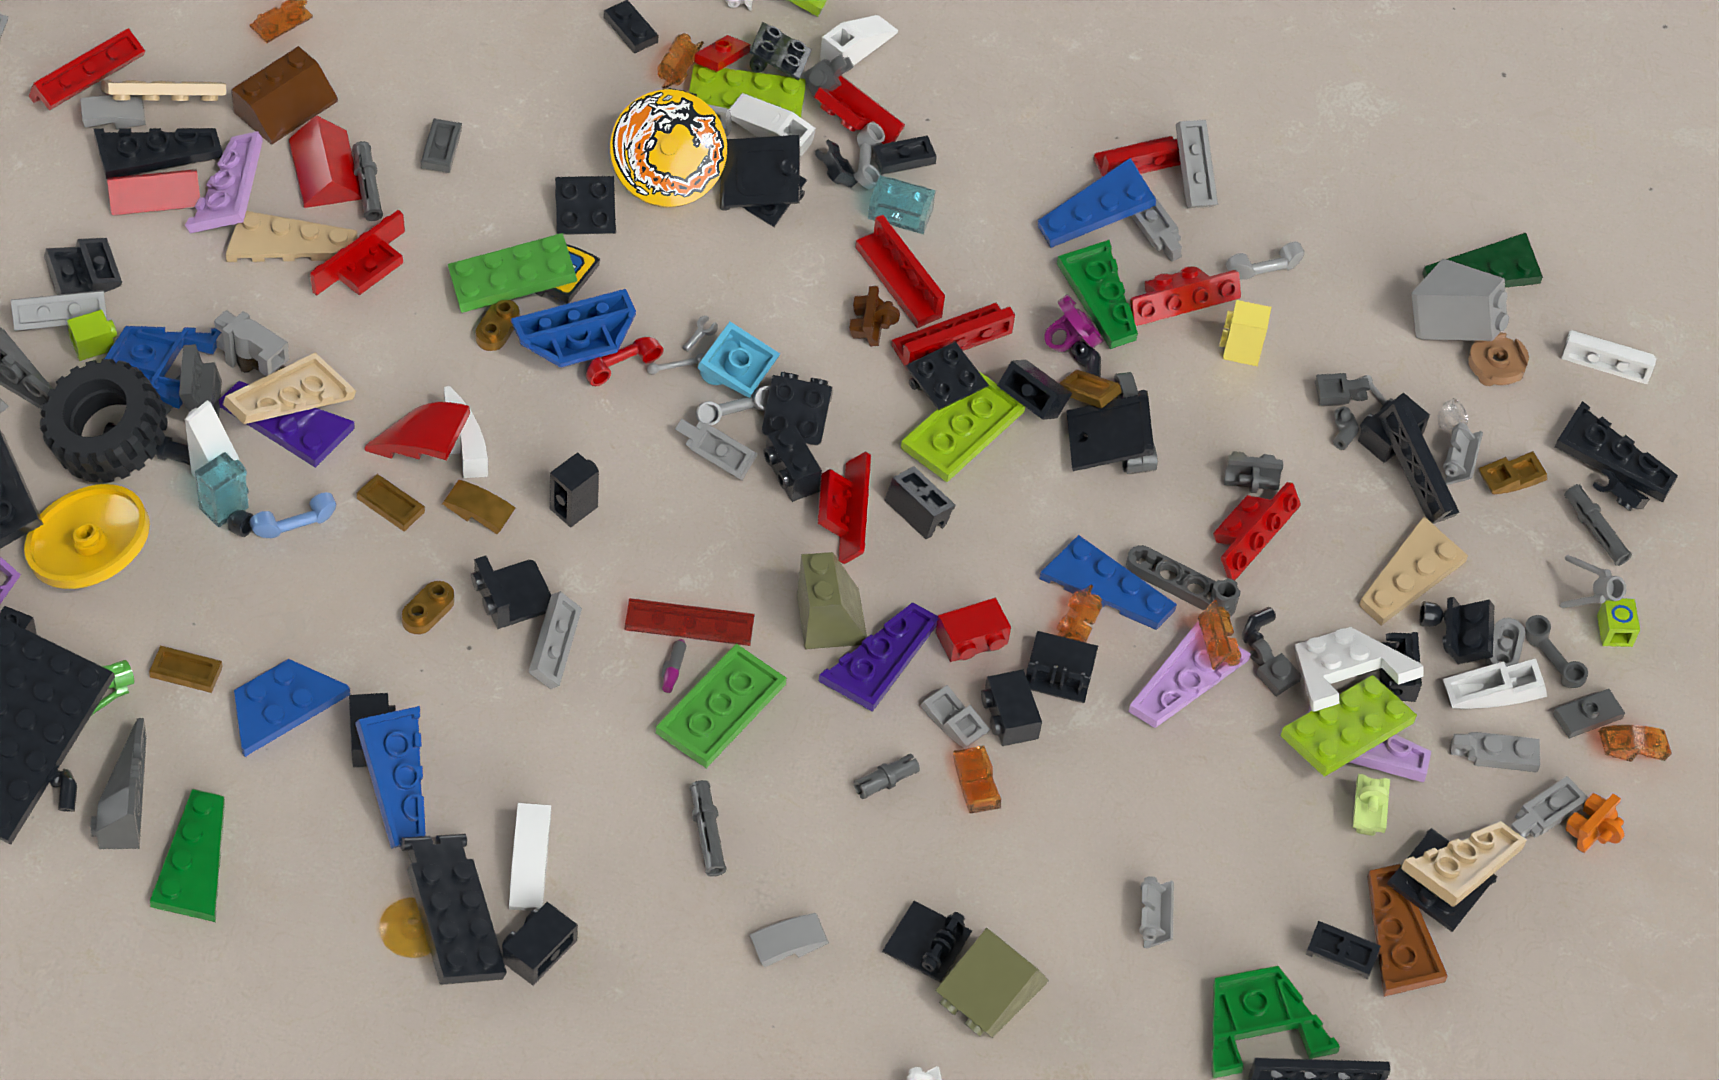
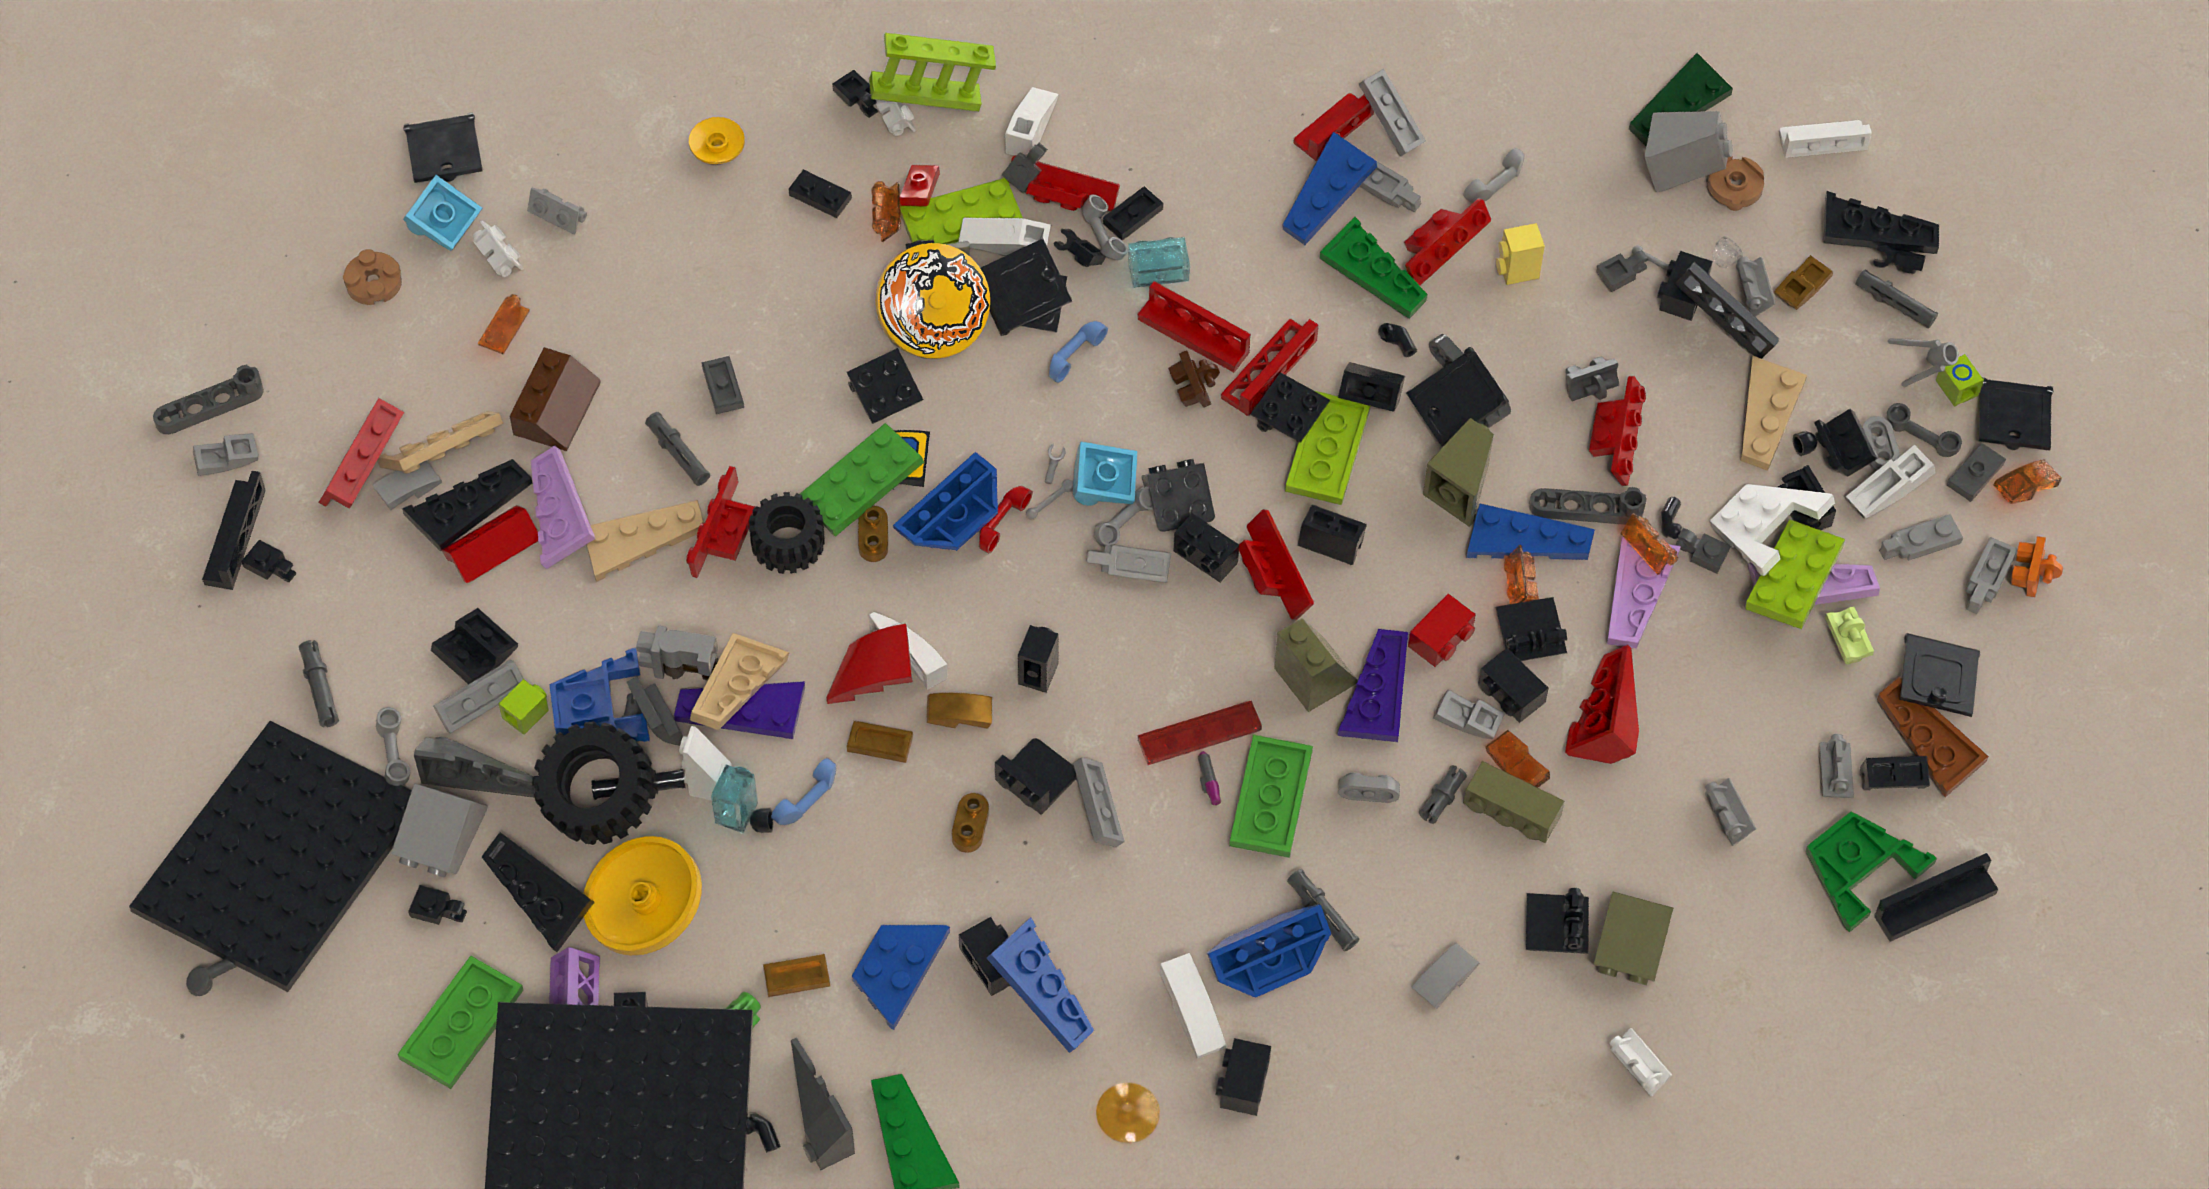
camera: 20 degrees left, 5 degrees up
(324, 164) = (628, 450): red slope -> none
(422, 306) = (783, 513): none -> black tyre
(453, 910) = (1156, 1081): black hinge -> none
(630, 842) = (1271, 951): none -> blue wedge
(778, 50) = (969, 161): black hinge -> none
(803, 237) = (1093, 332): none -> medium blue bar
(817, 739) = (1368, 788): none -> light grey plate
(949, 812) = (1513, 802): none -> olive brick
(1074, 495) = (1459, 471): none -> olive slope
(1076, 326) = (1373, 311): magenta tile -> none
(1091, 388) = (1417, 363): pearl gold tile -> none
(1092, 774) = (1609, 716): none -> red wedge
(1289, 921) = (1836, 768): none -> light grey hinge
(1347, 427) = (1645, 301): dark grey arm -> none
(1465, 863) = (1953, 651): tan wing -> none
(1662, 673) = (2017, 409): none -> black container

